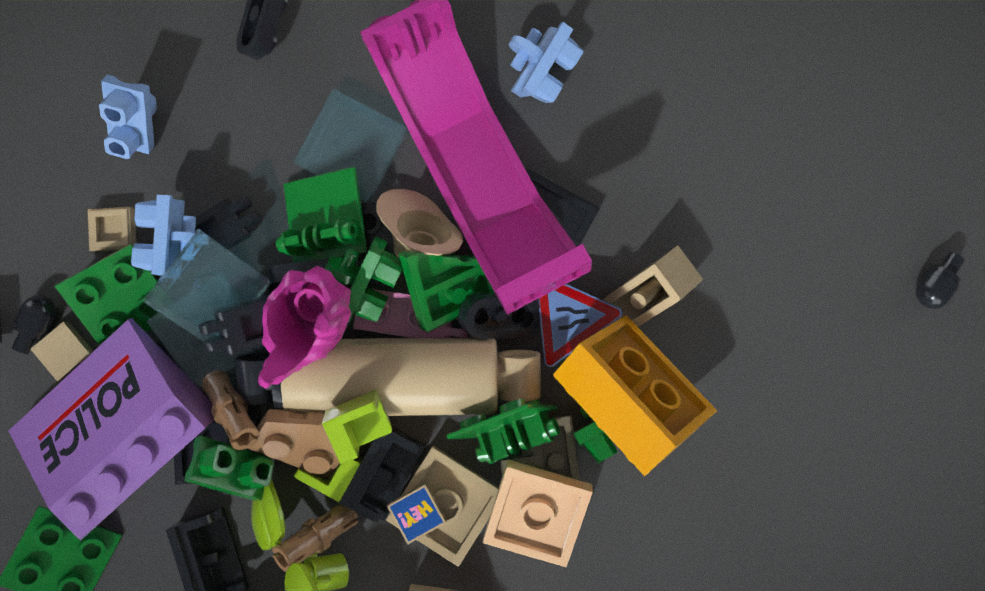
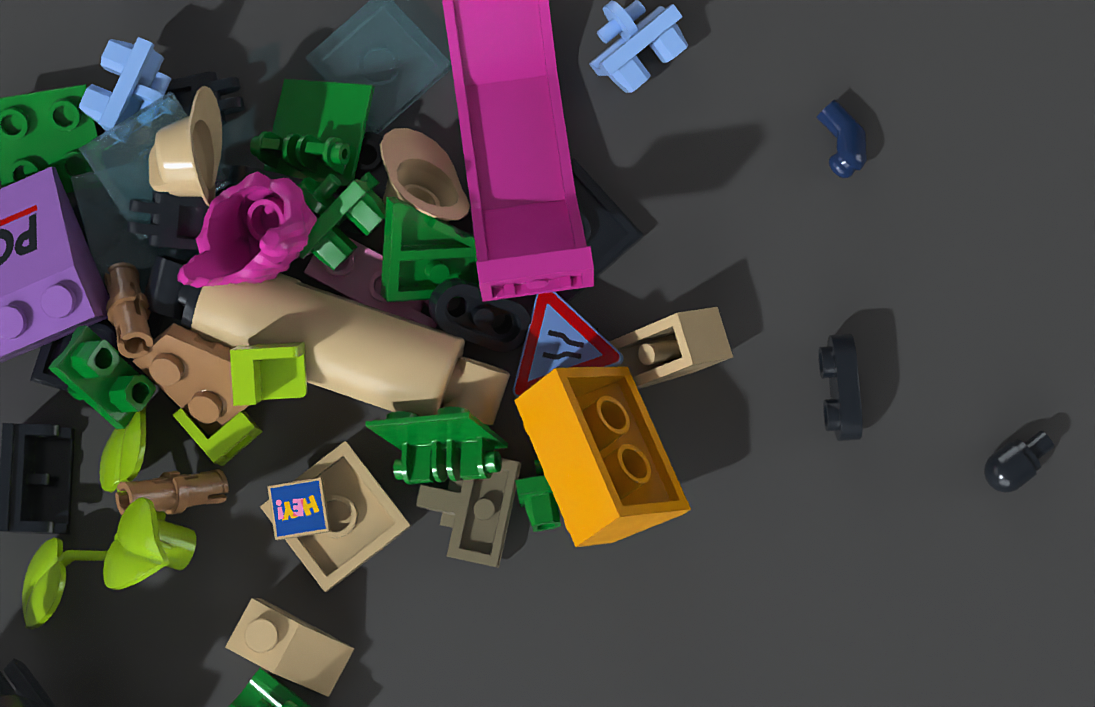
camera: 20 degrees right, 5 degrees down
(111, 228) = (67, 60): tan tile -> none
(231, 272) = (189, 151): none -> tan piece
(382, 474) = (276, 451): black hinge -> none
(537, 513) = (439, 558): light nougat hinge -> none
(730, 80) = (851, 140): none -> dark blue arm
(799, 286) = (844, 409): none -> black plate

